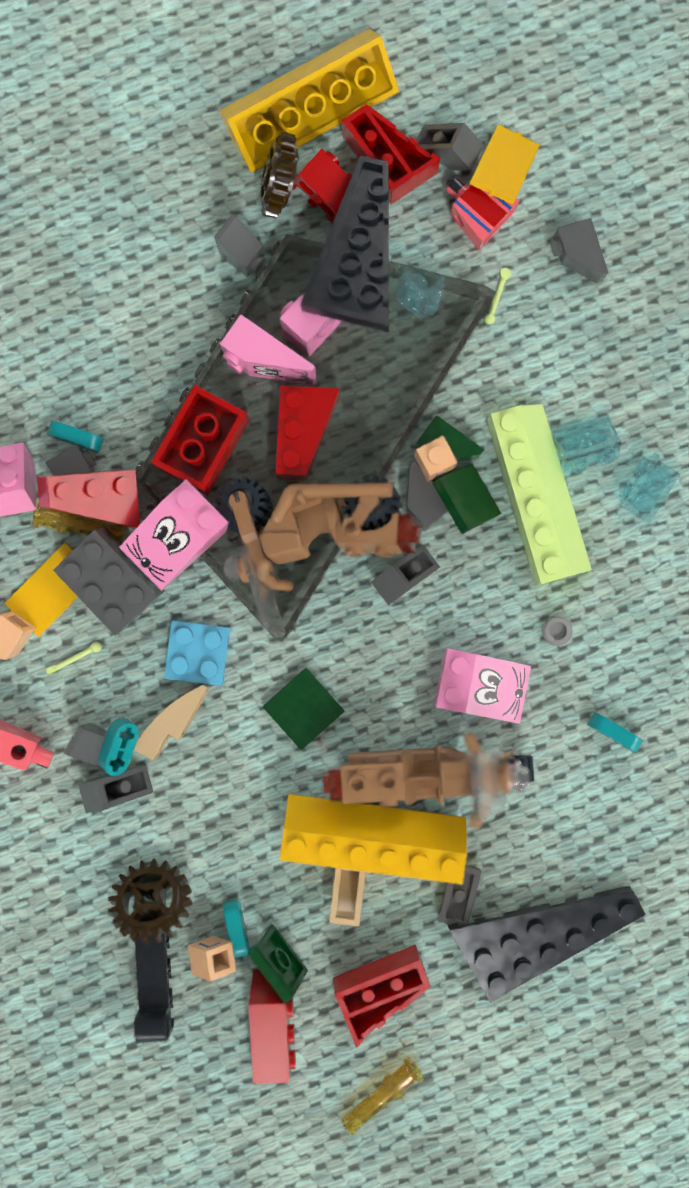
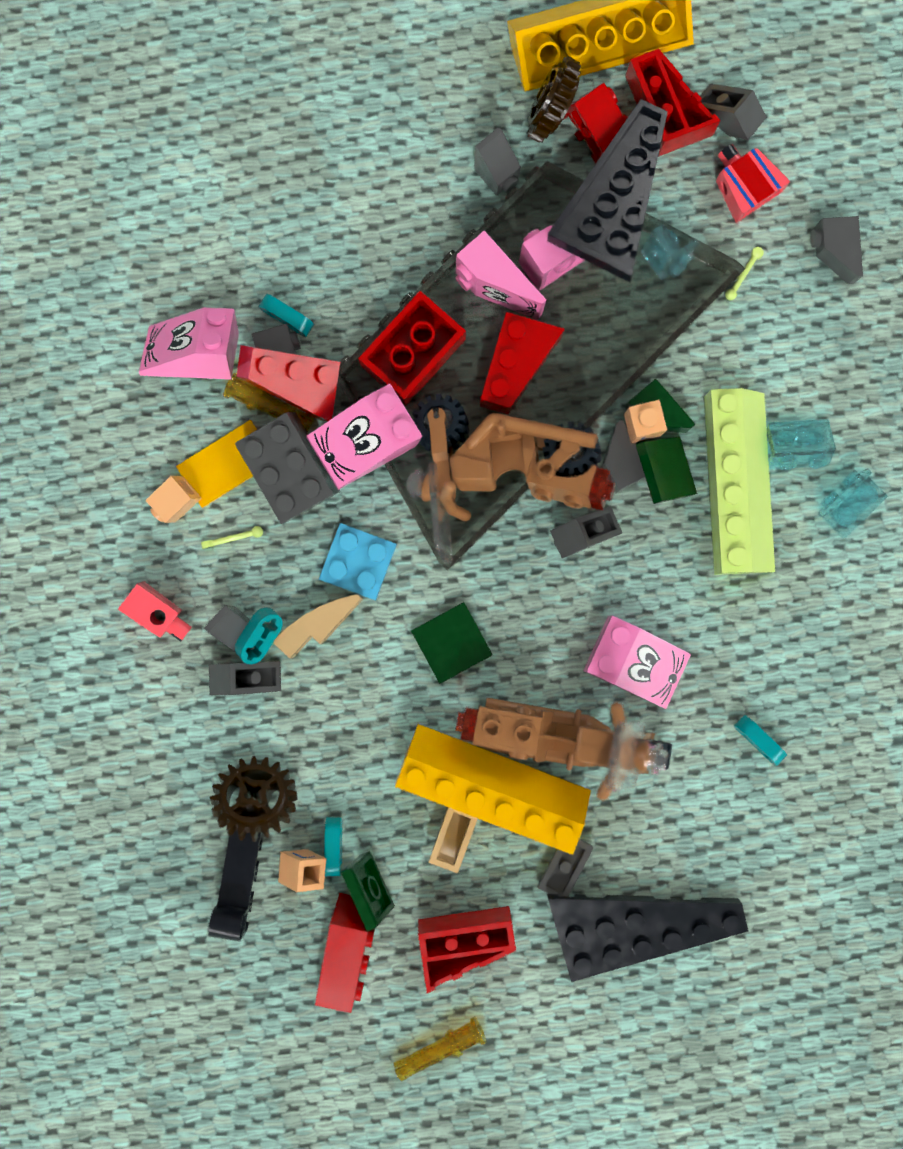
camera: 10 degrees right, 0 degrees up
(505, 164) = (783, 142): yellow piece -> none
(557, 631) = (725, 625): light grey tile -> none

